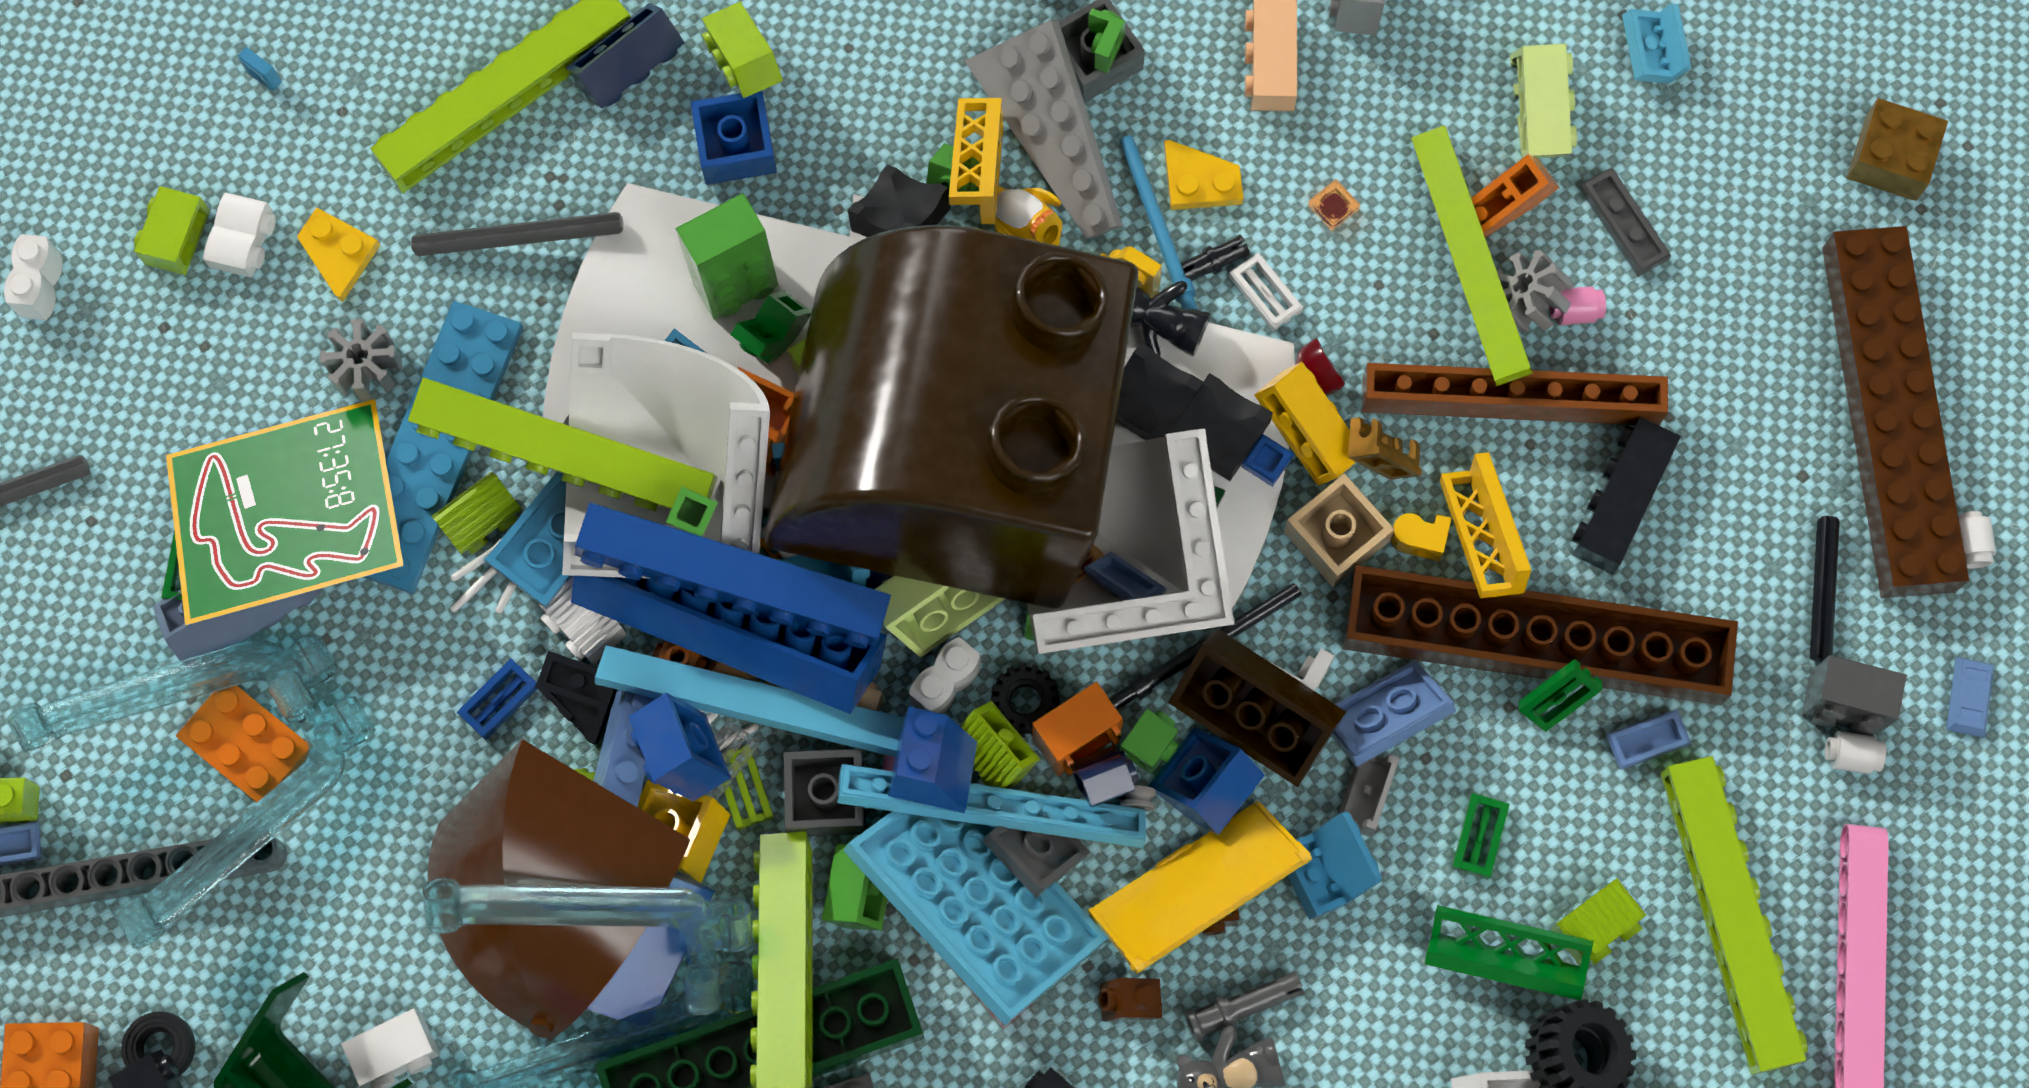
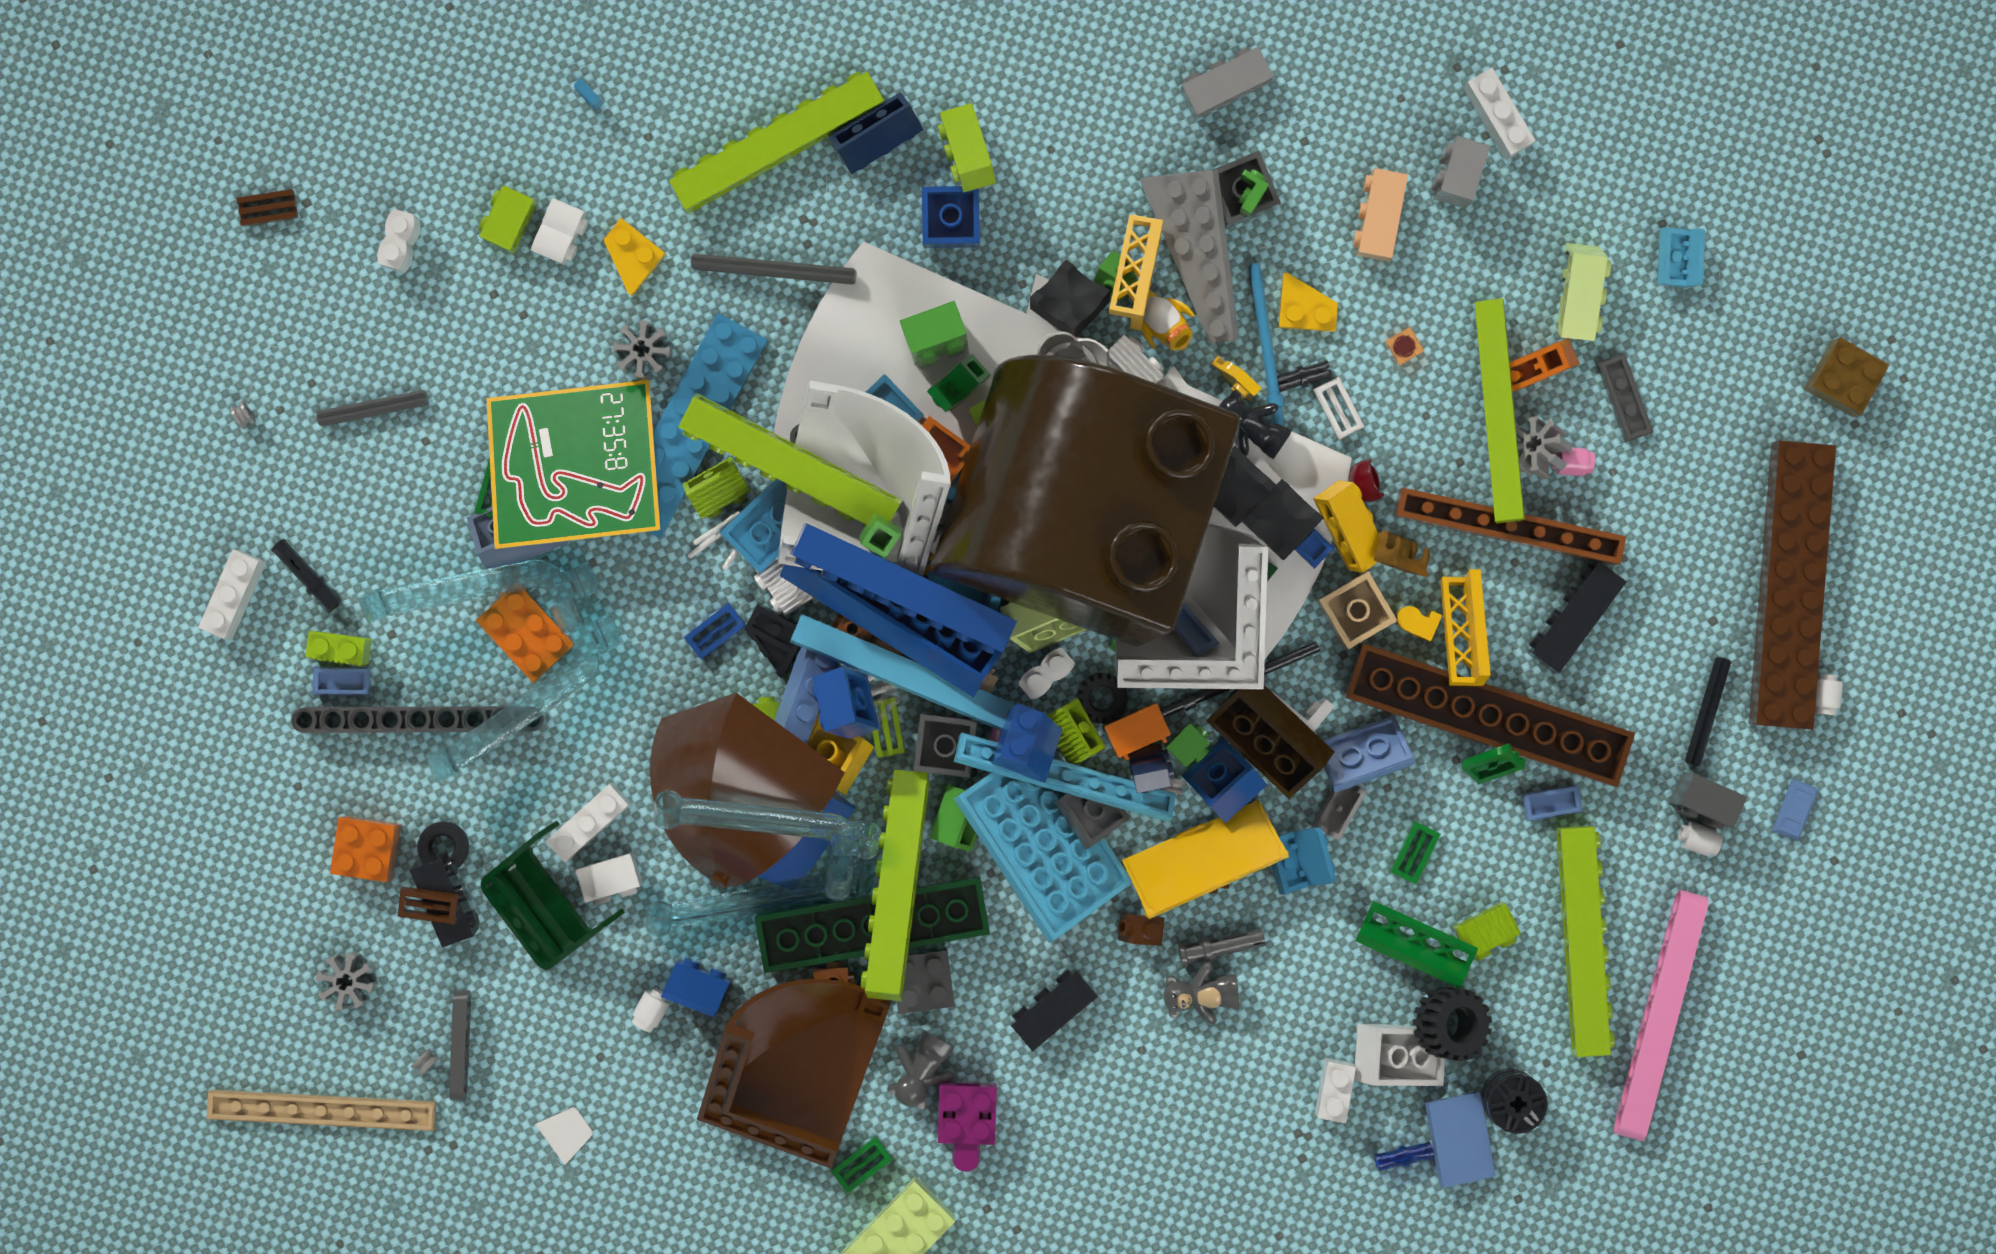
camera: 15 degrees right, 15 degrees up
(354, 978) = (588, 822): none -> white brick

